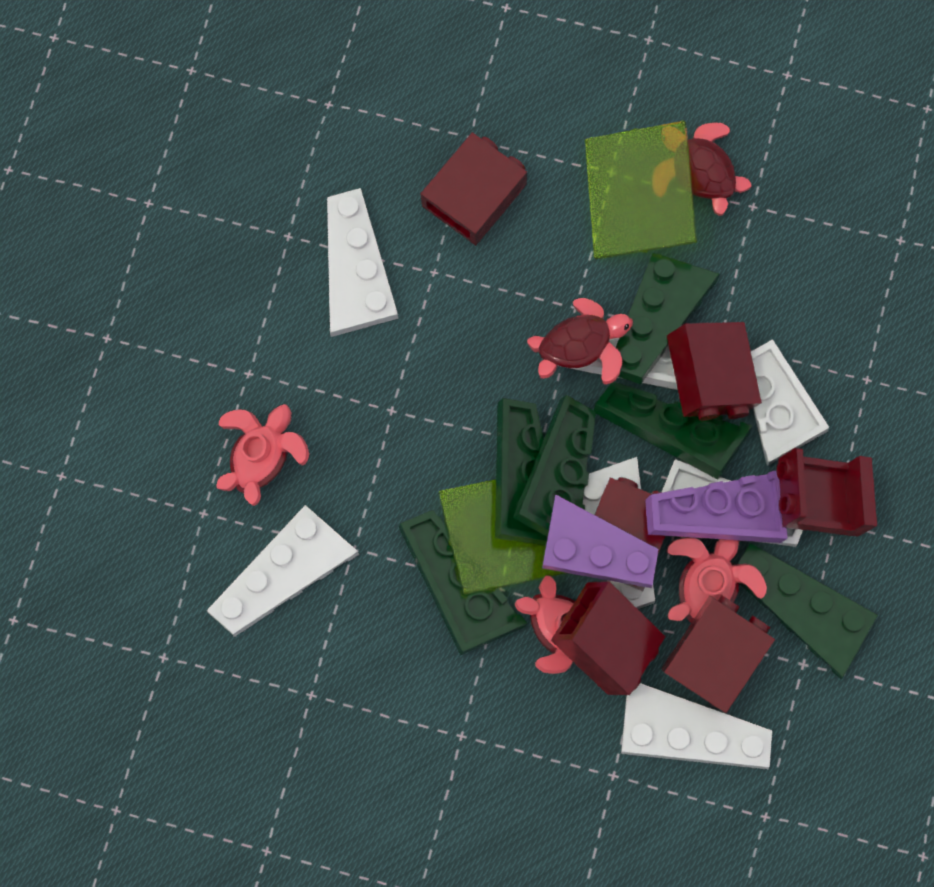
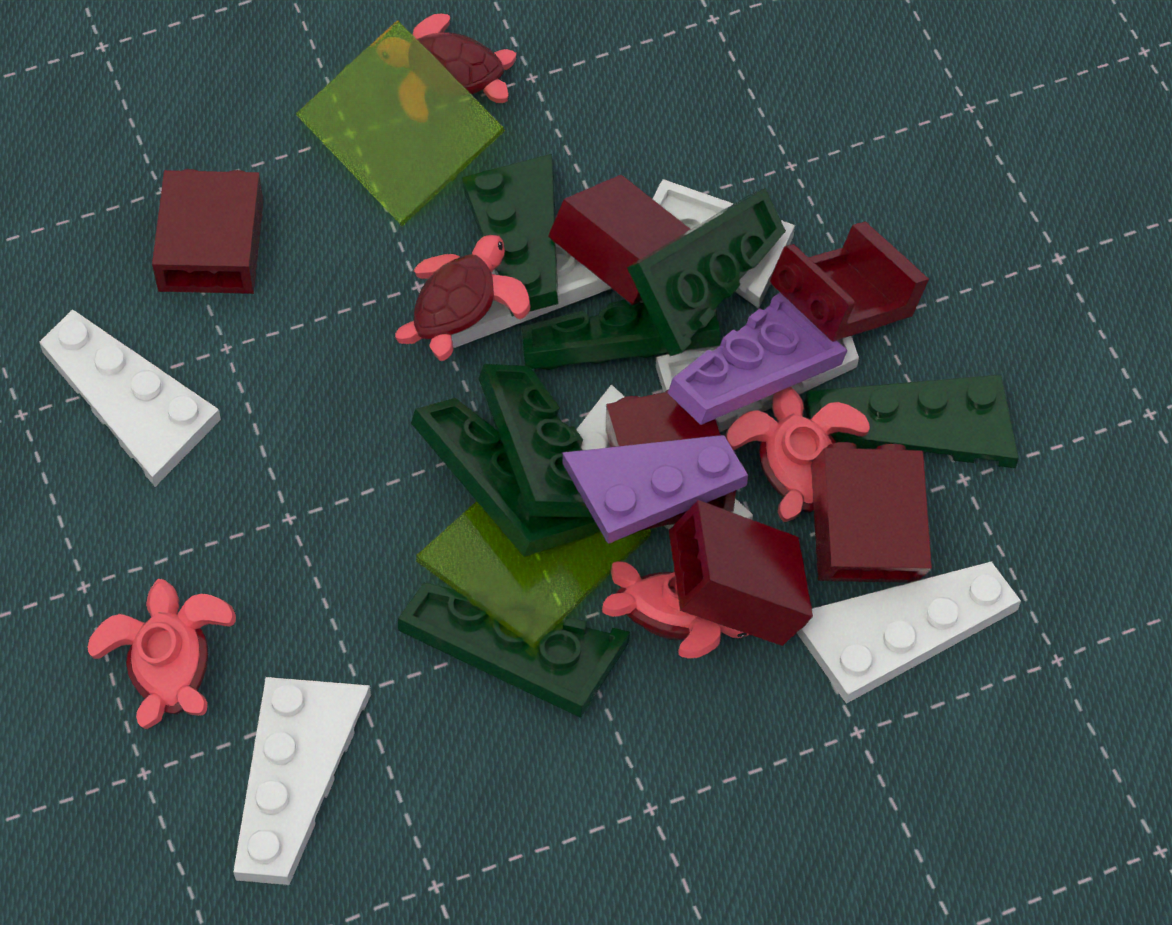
camera: 40 degrees left, 15 degrees down
(740, 424) = (703, 266): none -> dark green wing

